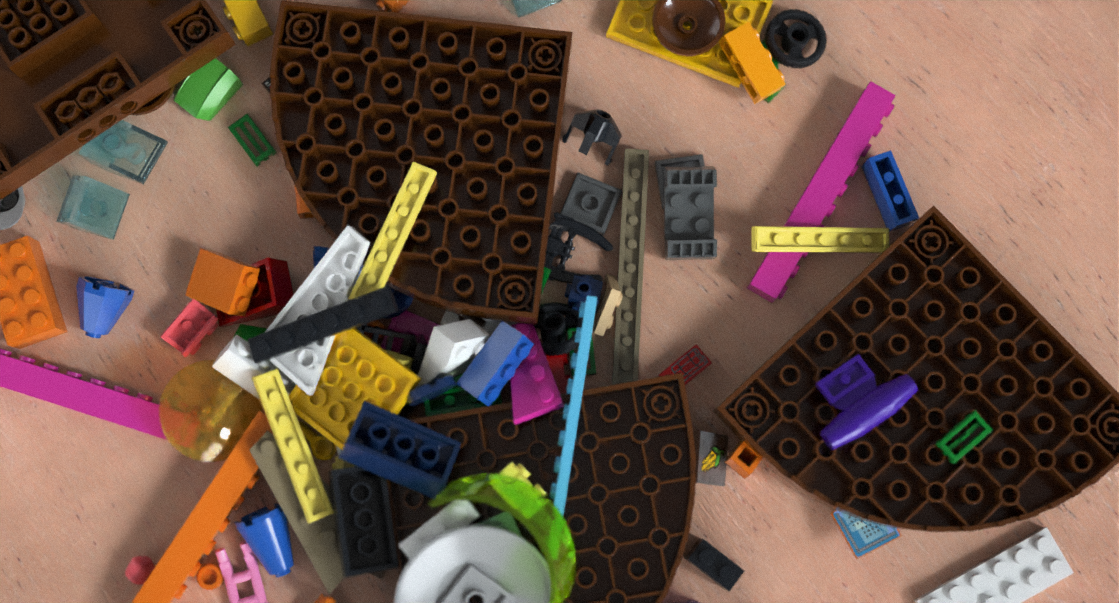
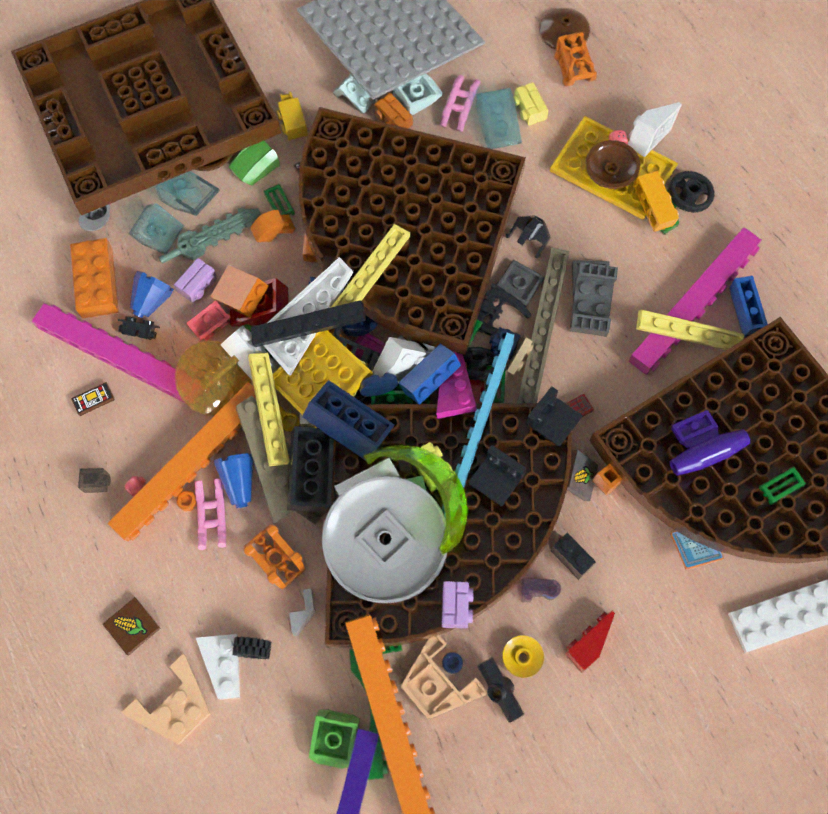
camera: 15 degrees right, 10 degrees down
(58, 460) = (93, 399): none -> tile
(82, 574) = (94, 480): none -> clear smoke brick
(87, 349) = (130, 327): none -> black hinge
(148, 219) = (194, 244): none -> sand green bar
(161, 273) = (195, 280): none -> lavender brick
(247, 177) = (270, 224): none -> orange brick
(604, 492) = (497, 476): none -> black bracket
(666, 401) = (553, 418): none -> black bracket

